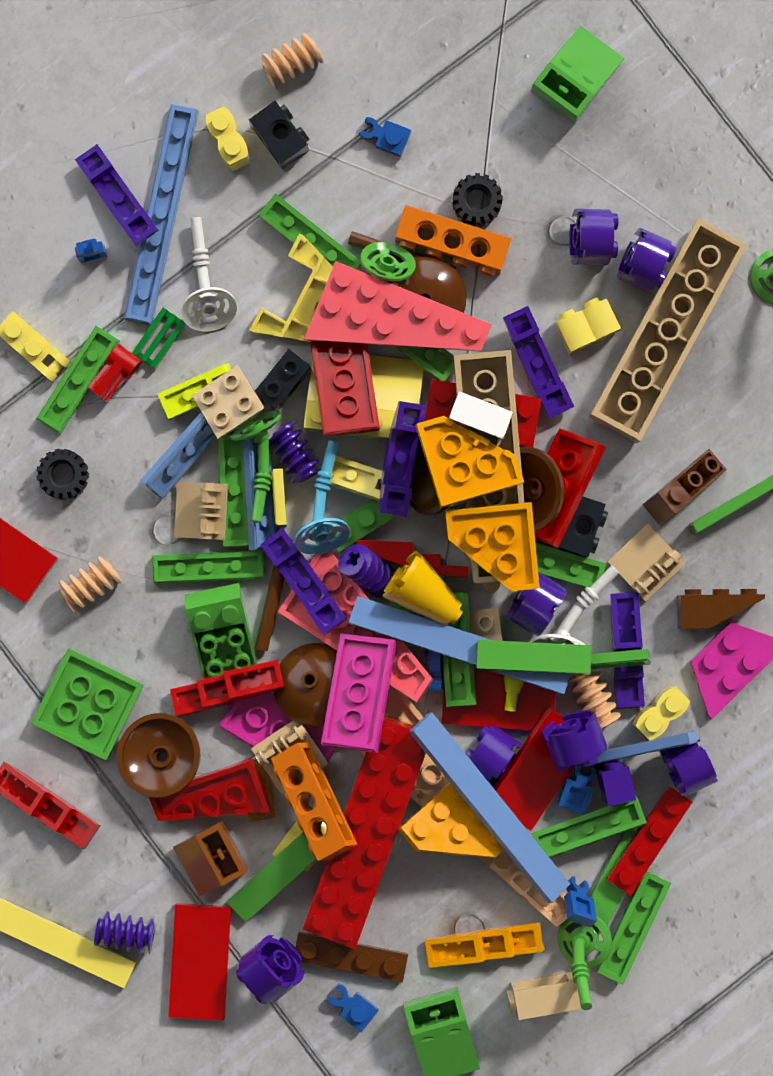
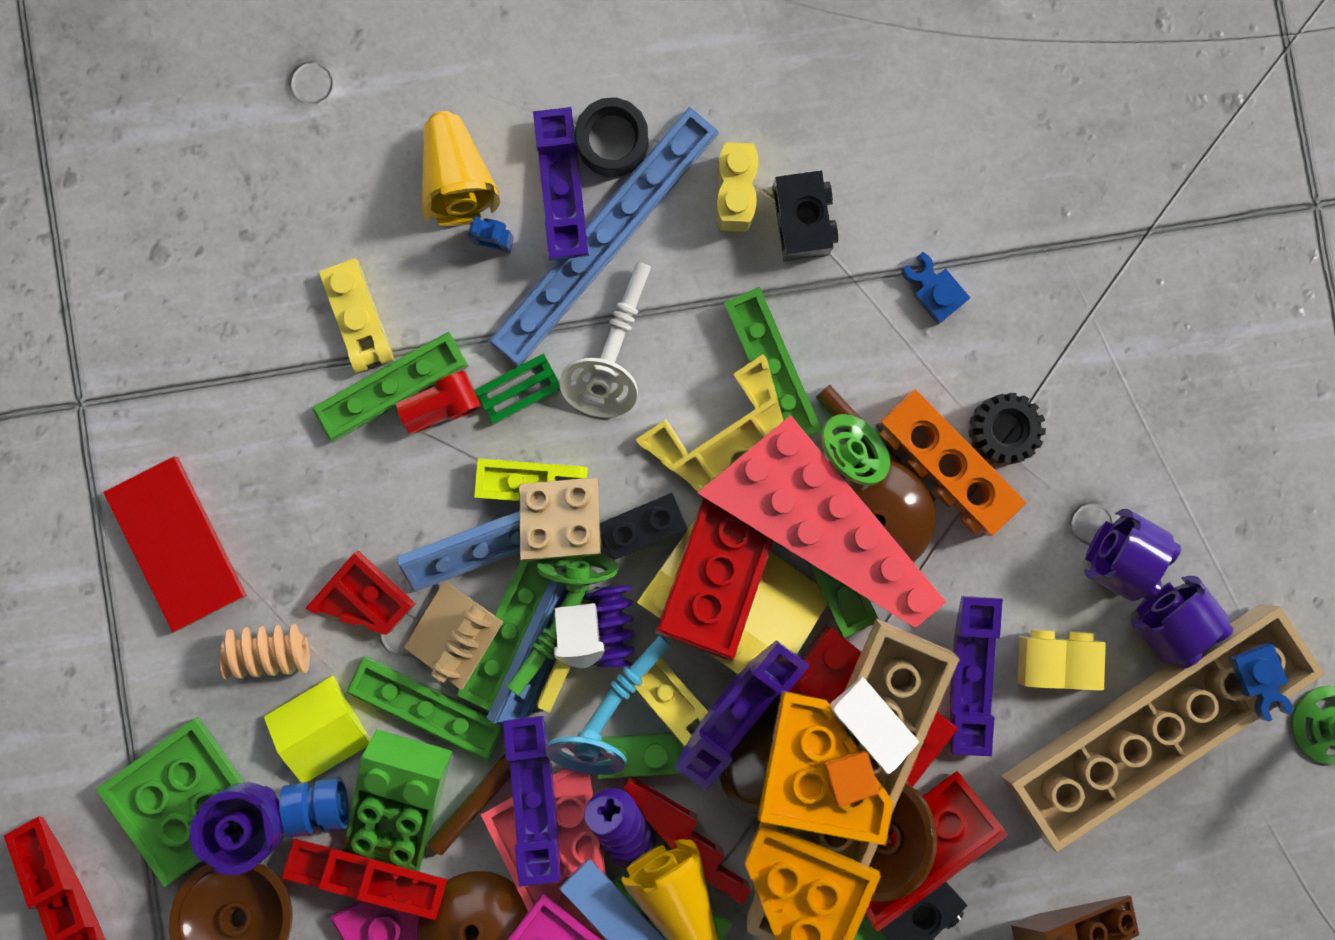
camera: 20 degrees right, 0 degrees up
(46, 469) = (283, 489): black tyre -> none
(47, 224) = (453, 173): none -> yellow cone
(116, 692) = (227, 847): none -> dark purple brick
(130, 128) = (611, 107): none -> black tyre
(131, 518) = (363, 596): none -> red wing
(148, 617) = (316, 730): none -> neon yellow slope
(172, 661) = (312, 807): none -> blue wheel
(278, 466) = (578, 636): none -> white tile
(290, 59) = (868, 129): light nougat piece -> none
(482, 452) = (851, 778): none -> orange tile
(576, 74) = (1214, 340): bright green slope -> none
(705, 266) = (1261, 675): none -> blue plate

